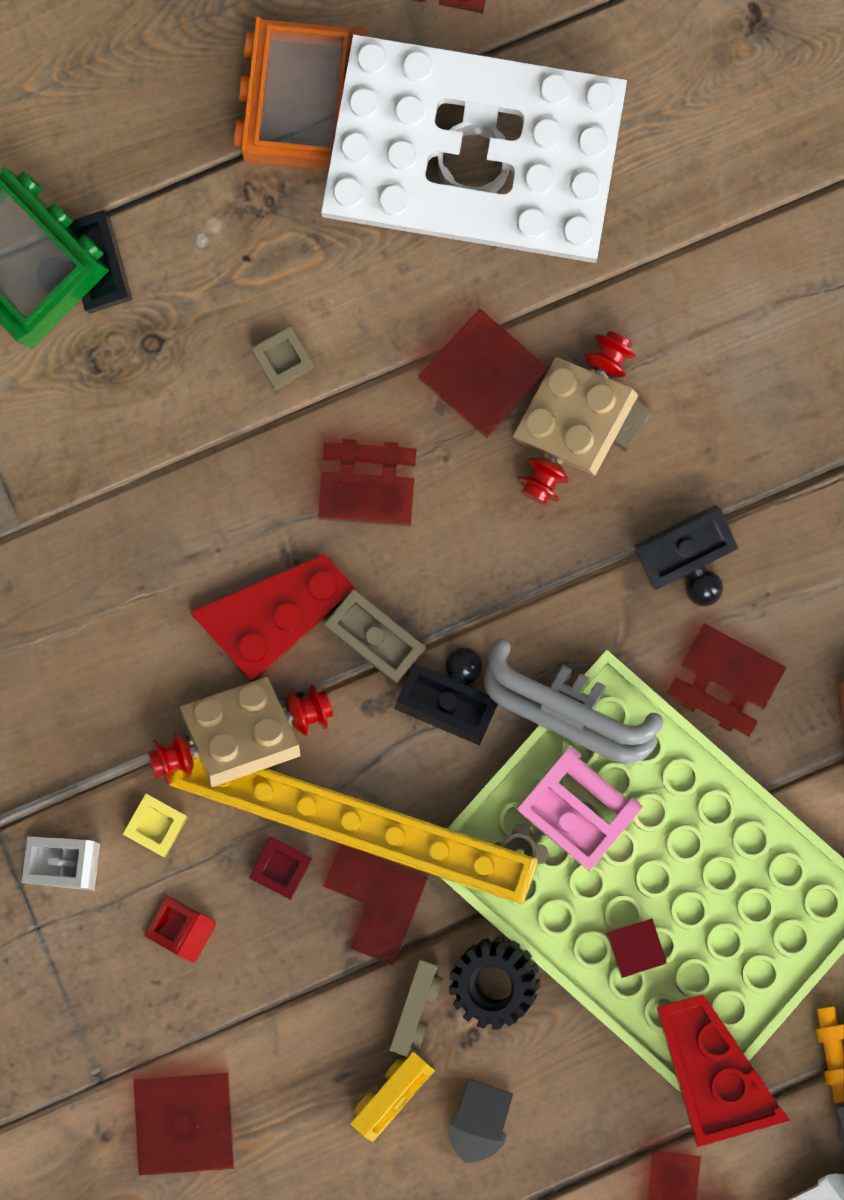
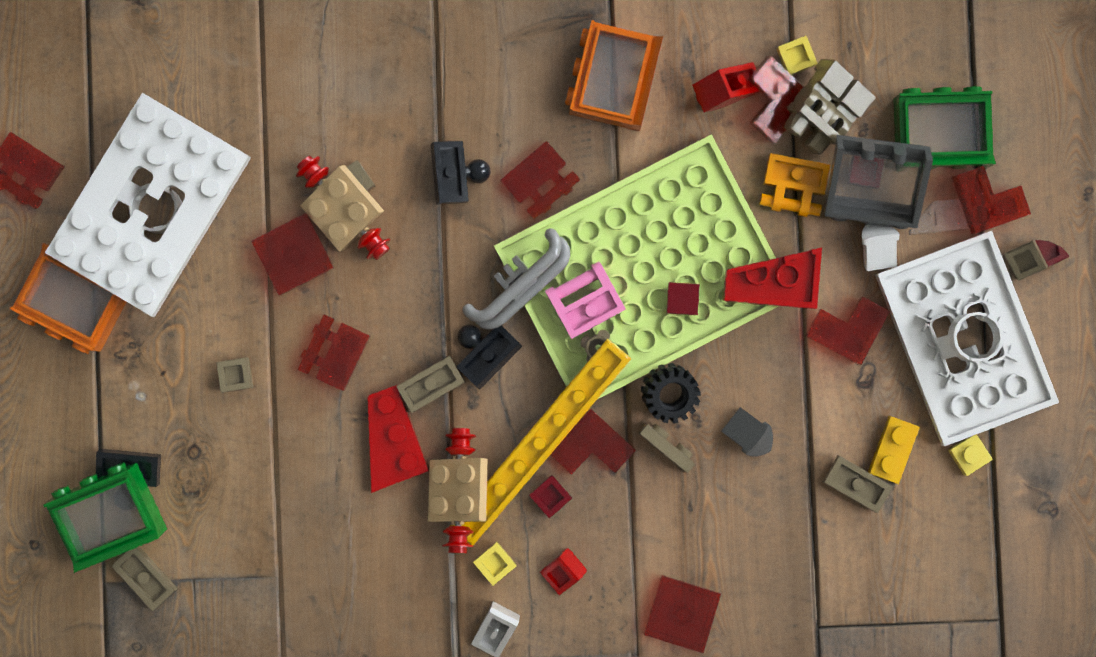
camera: 65 degrees left, 5 degrees up
(379, 1109) = (719, 492): yellow plate -> none

